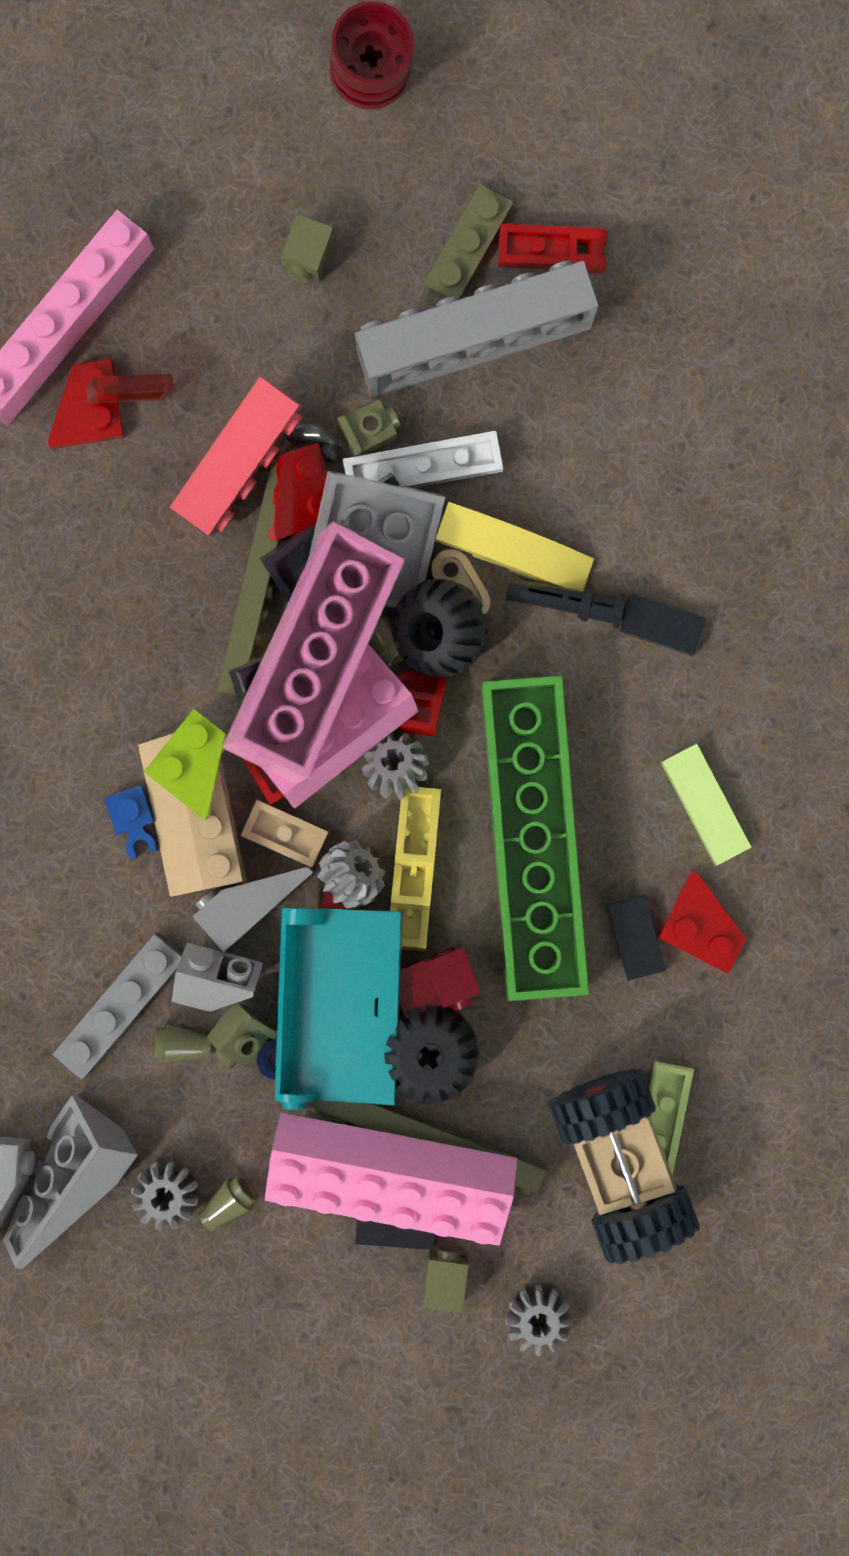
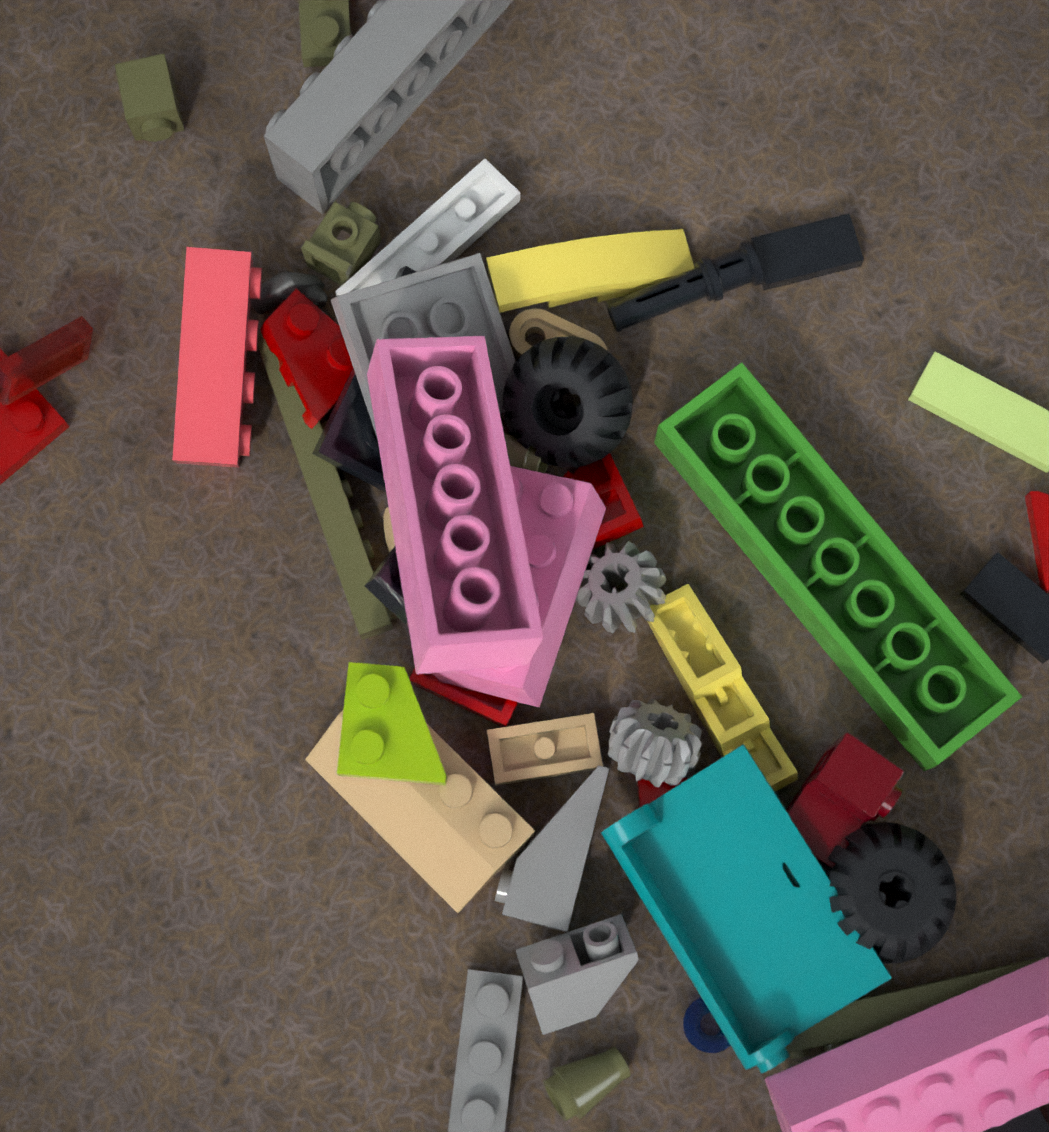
camera: 30 degrees left, 10 degrees down
(131, 814) = (349, 845): blue plate -> none
(240, 1035) = (650, 1022): olive brick -> none

